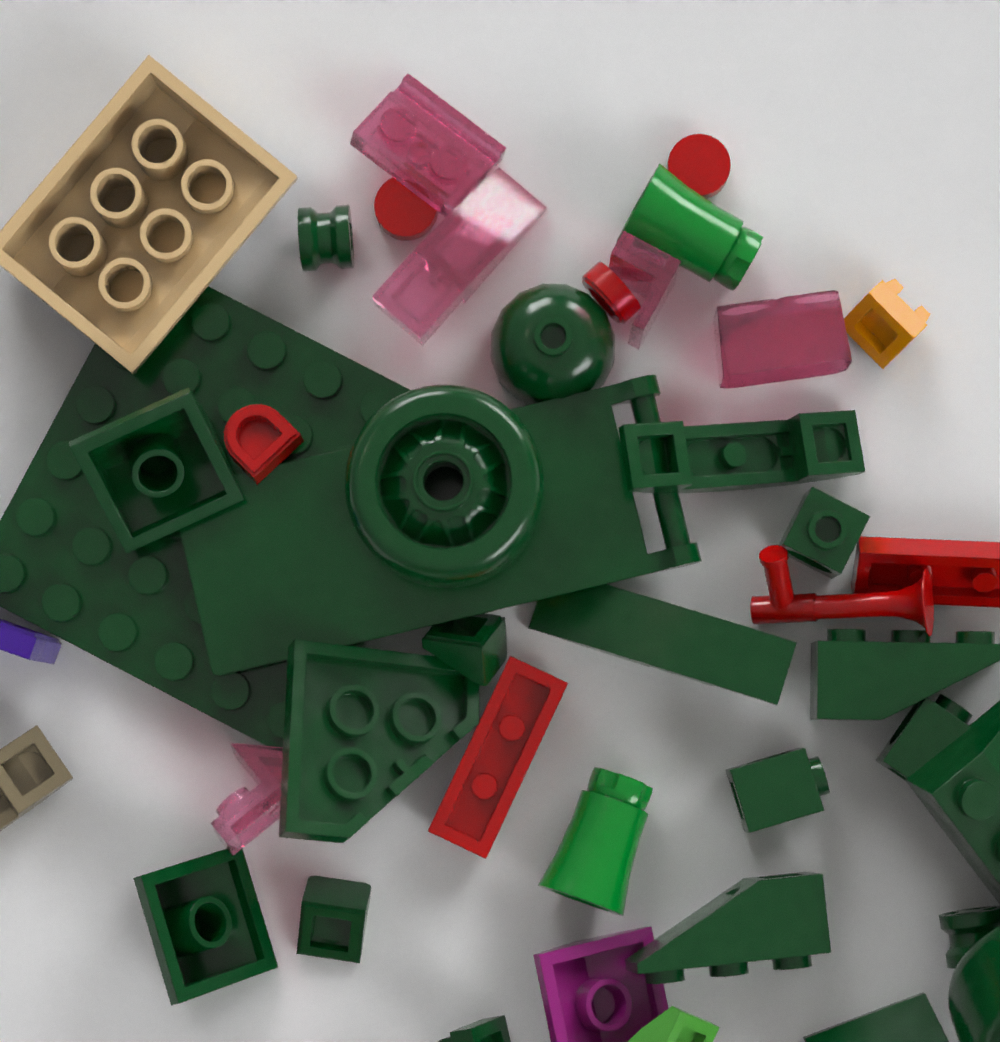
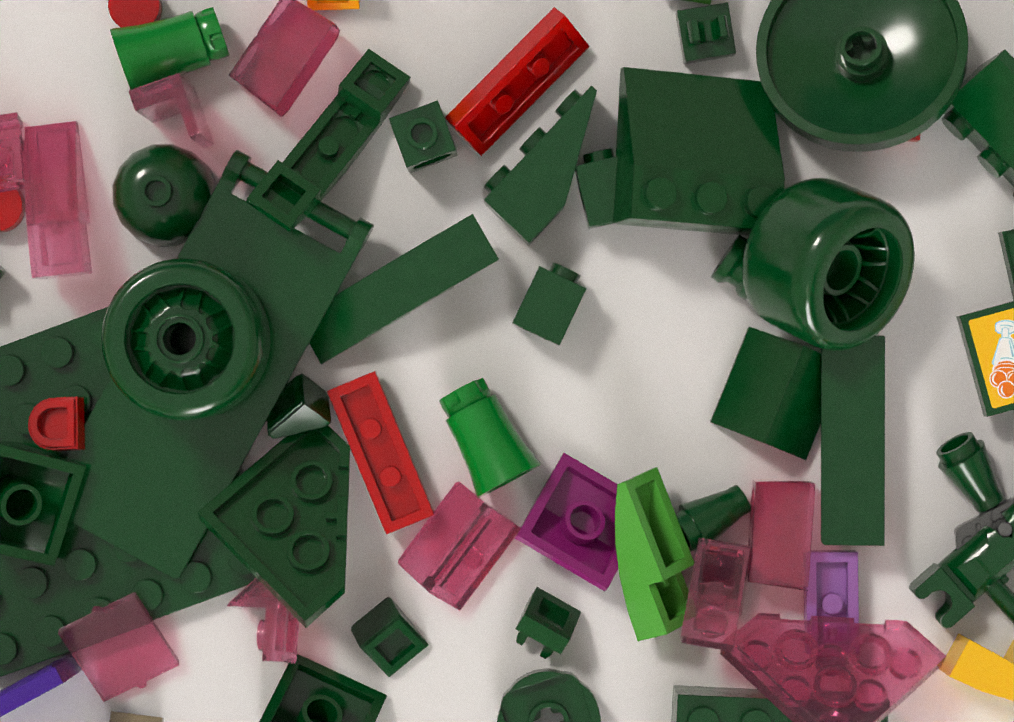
camera: 60 degrees left, 5 degrees up
(103, 678) = (119, 646): none -> clear pink piece
(476, 907) = (458, 546): none -> clear pink panel
(610, 293) = (162, 131): red tile -> none
(751, 921) = (612, 392): dark green slope -> none
(786, 607) = (446, 200): red piece -> none

